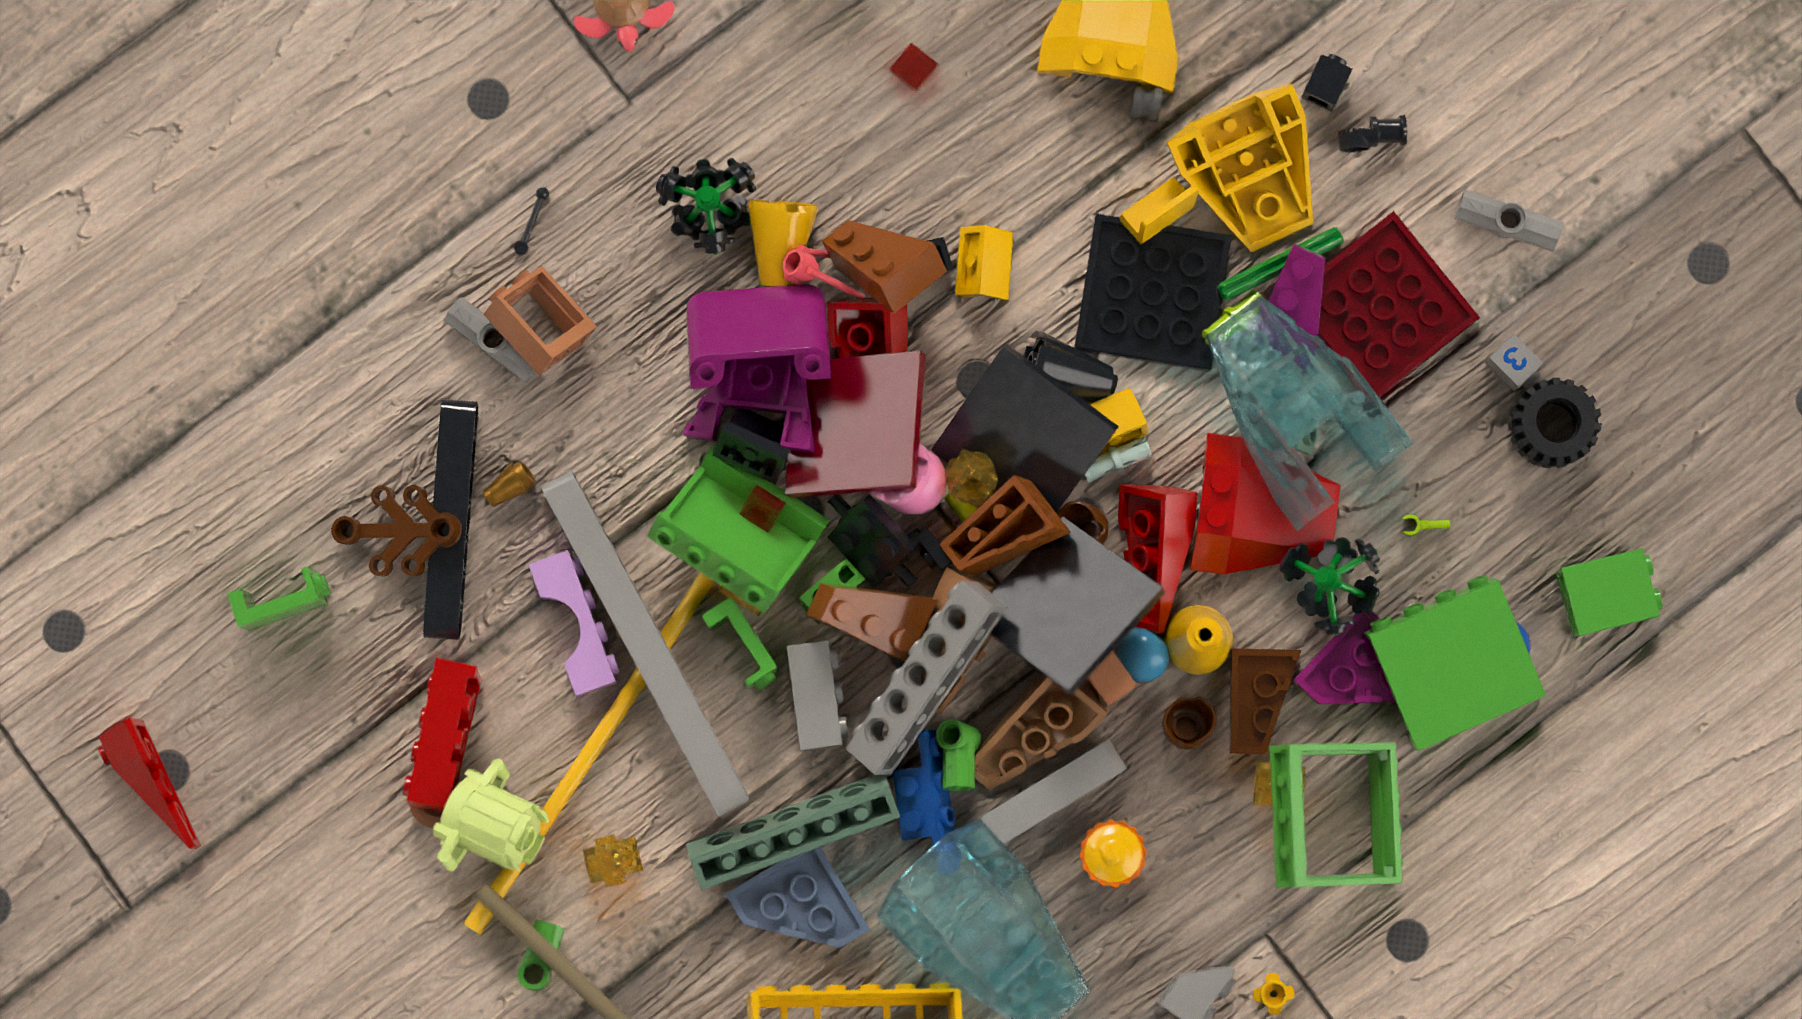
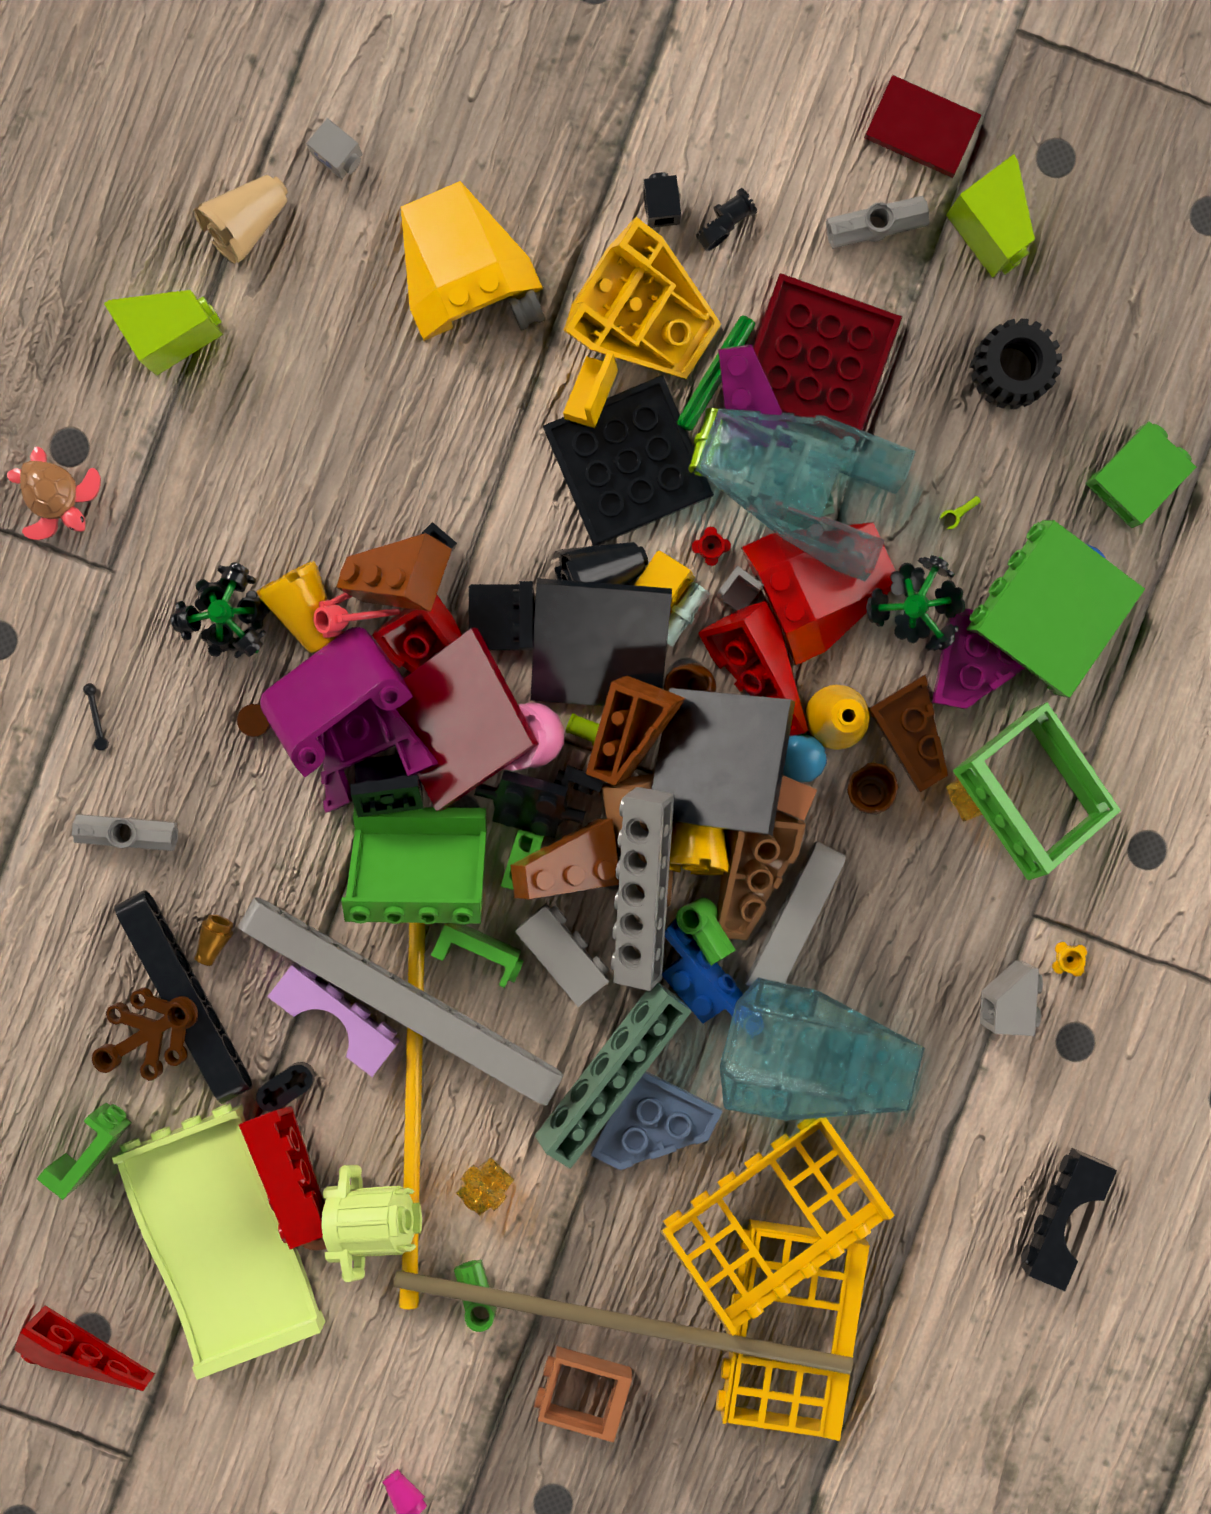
camera: 30 degrees left, 5 degrees up
(341, 757) = (217, 1241): none -> yellowish green panel
(490, 650) = (282, 1080): none -> black beam
(559, 307) = (157, 771): nougat window -> none
(671, 313) = (252, 721): none -> reddish brown tile
(762, 508) = (425, 834): clear red plate -> none
(913, 67) = (321, 399): clear red plate -> none
(955, 358) = (503, 614): none -> black bracket
(971, 477) = (577, 704): clear yellow brick -> none
(984, 262) = (478, 521): yellow panel -> none
(997, 677) = (698, 850): none -> yellow cone
(1113, 853) = (877, 930): yellow piece -> none
(1180, 468) = (739, 589): none -> light grey panel
(1185, 406) = (720, 546): none -> red plate
(1515, 363) = (953, 335): light grey brick -> none
(1603, 161) = (922, 126): none -> dark red tile
(1613, 281) = (995, 218): none -> lime slope

